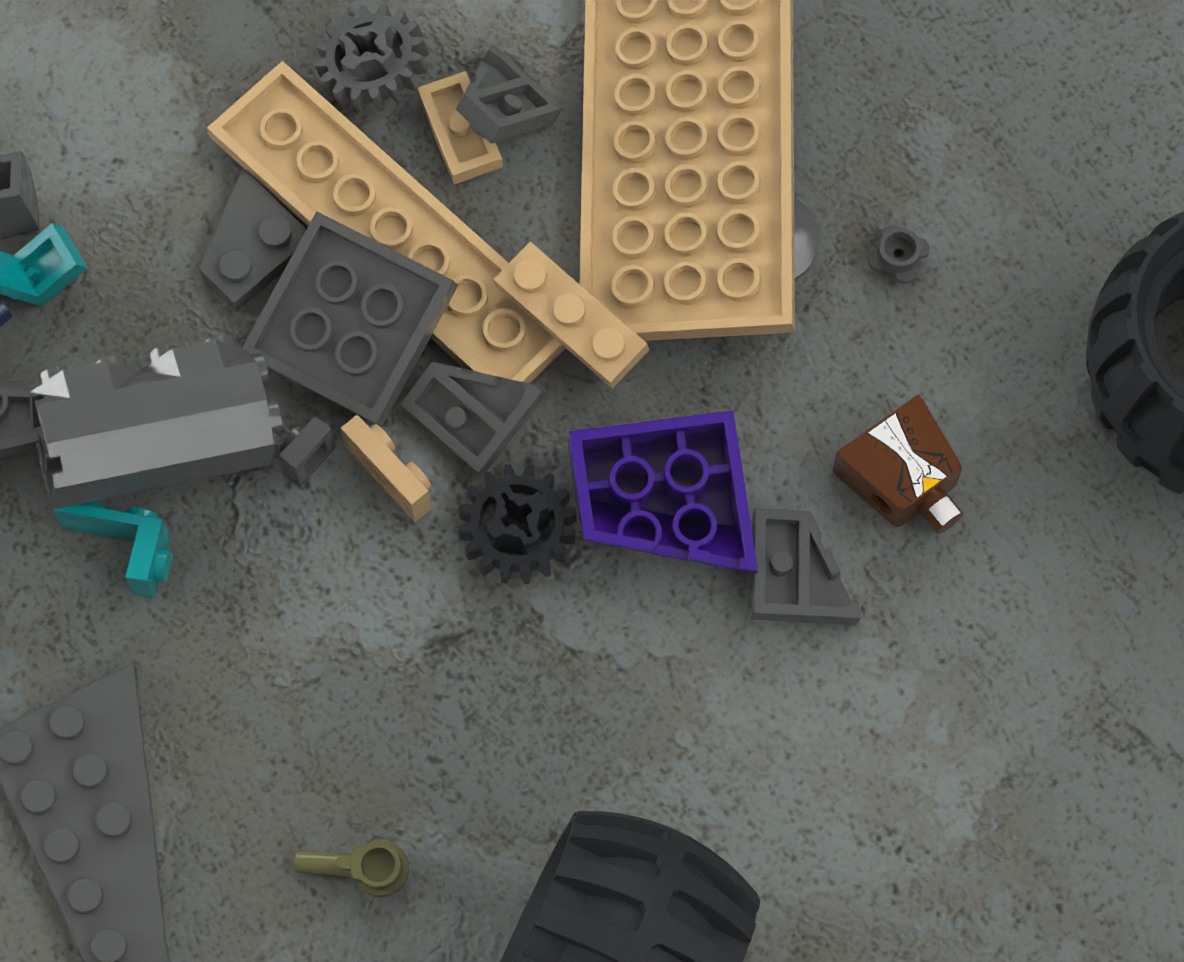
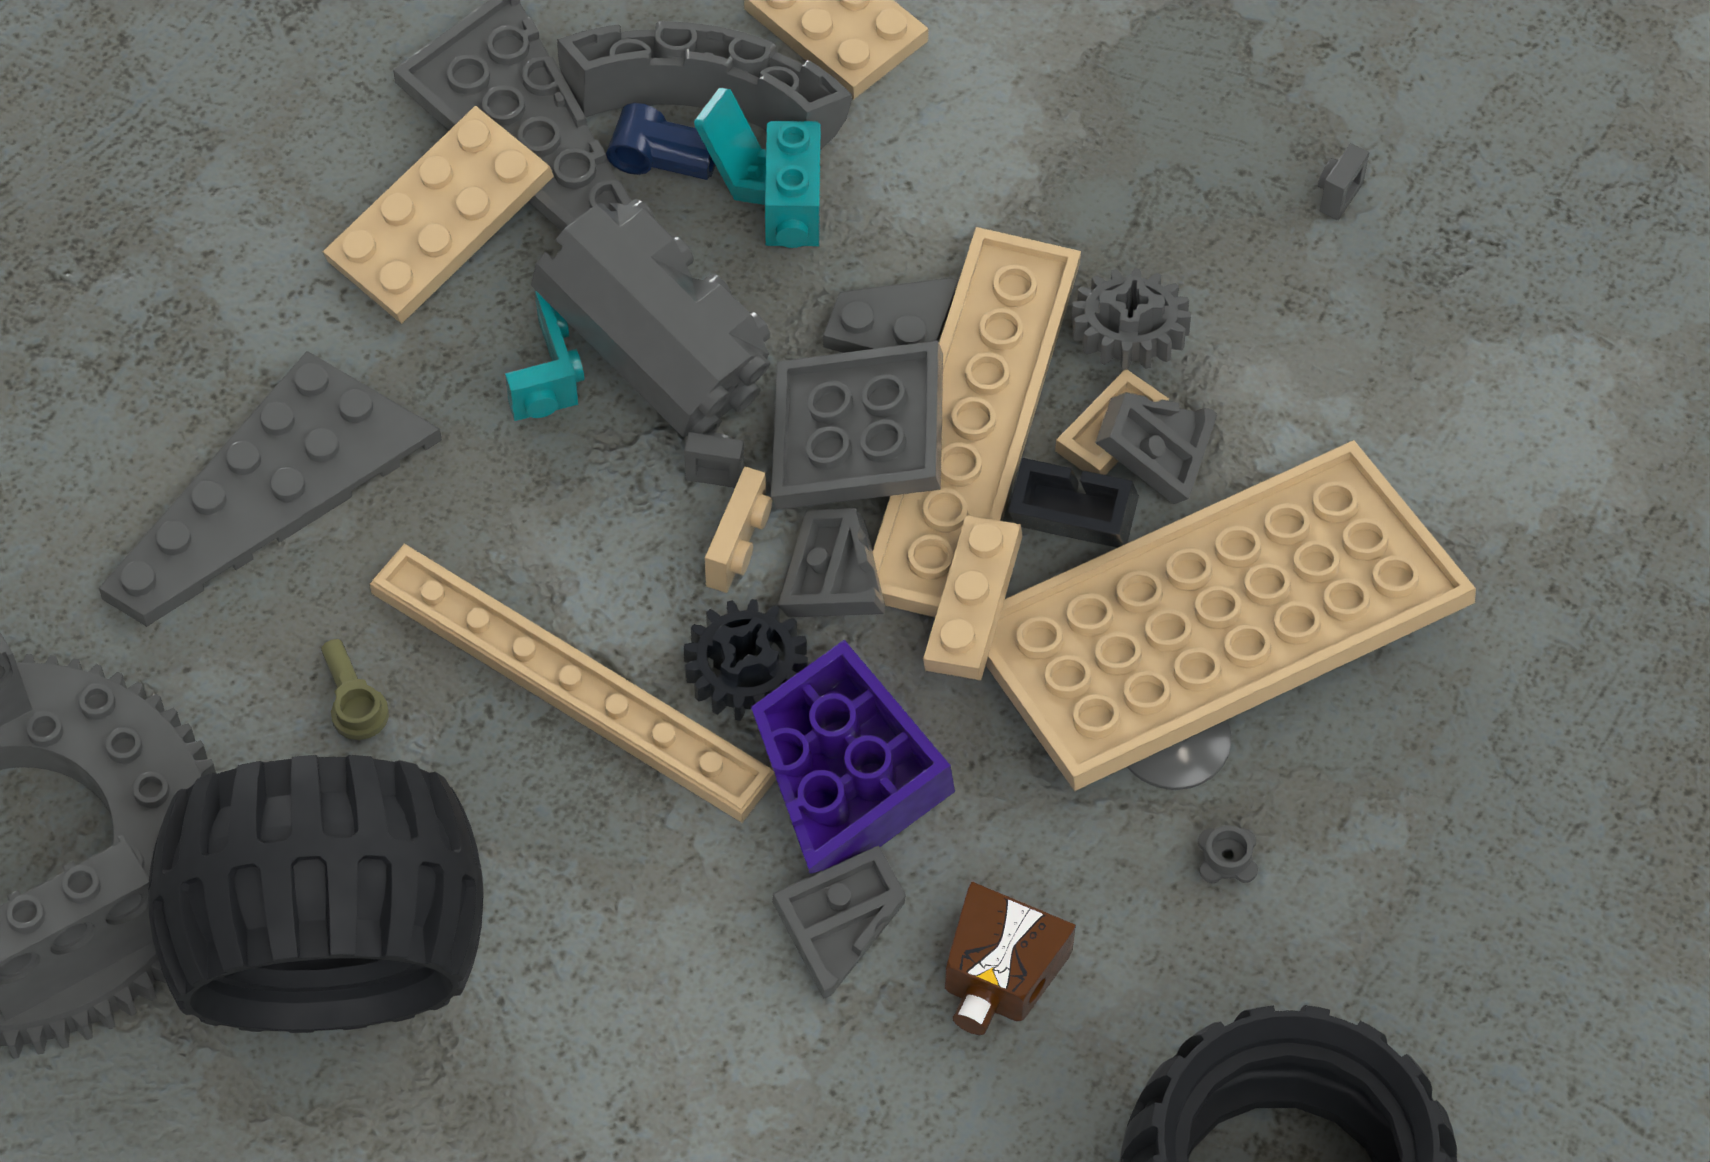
camera: 60 degrees right, 10 degrees down
(73, 242) = (792, 184): none -> teal bracket
(445, 678) = (573, 683): none -> tan tile
(527, 192) = (1049, 503): none -> black piece

